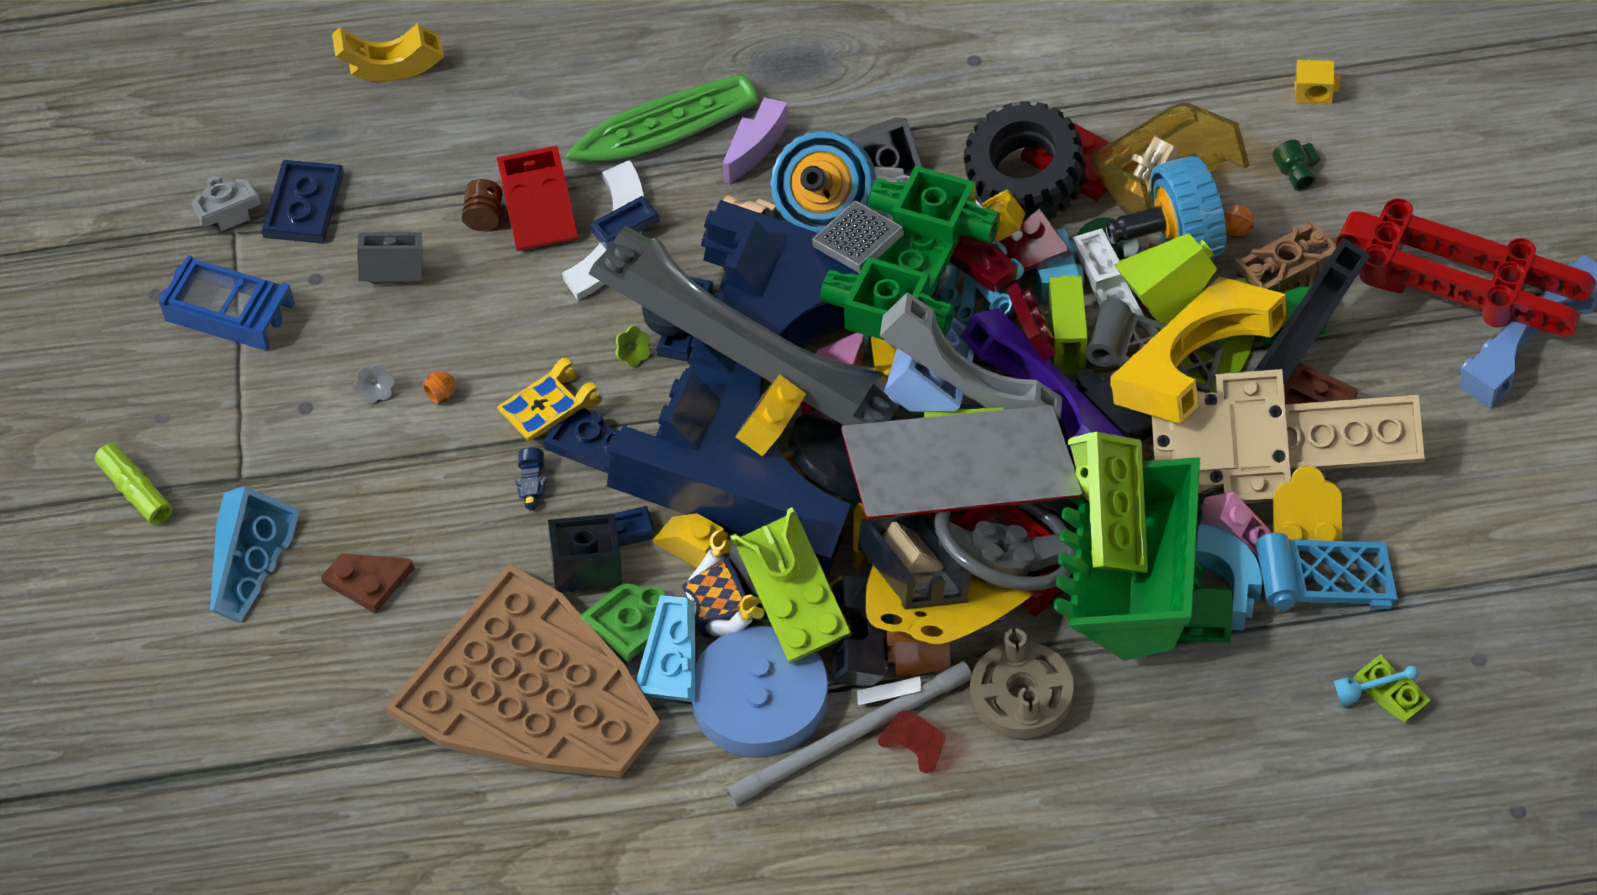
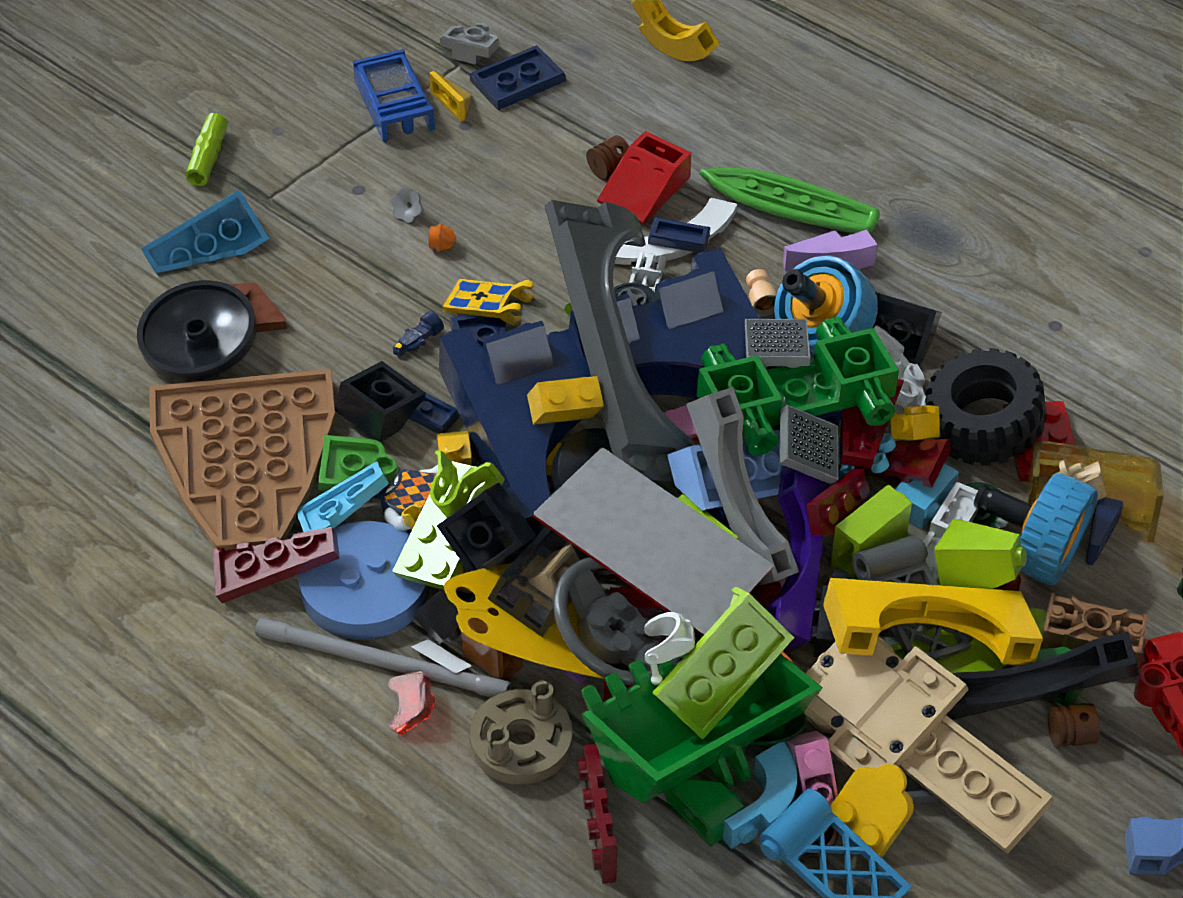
camera: 45 degrees right, 5 degrees down
(274, 264) = (450, 95): none -> yellow slope
(361, 630) = (196, 330): none -> black dish
(390, 256) = (512, 141): dark grey brick -> none
(677, 750) = (261, 565): none -> dark red wing
(840, 562) = (486, 529): none -> black slope
(972, 295) = (808, 444): none -> tile
(1059, 505) = (680, 640): none -> white helmet
(1156, 694) = (601, 824): none -> dark red wing
(1238, 220) = (1100, 576): orange plate -> none
(1313, 386) = (1000, 732): copper wing -> none
(1348, 345) = (1073, 725): none -> reddish brown piece

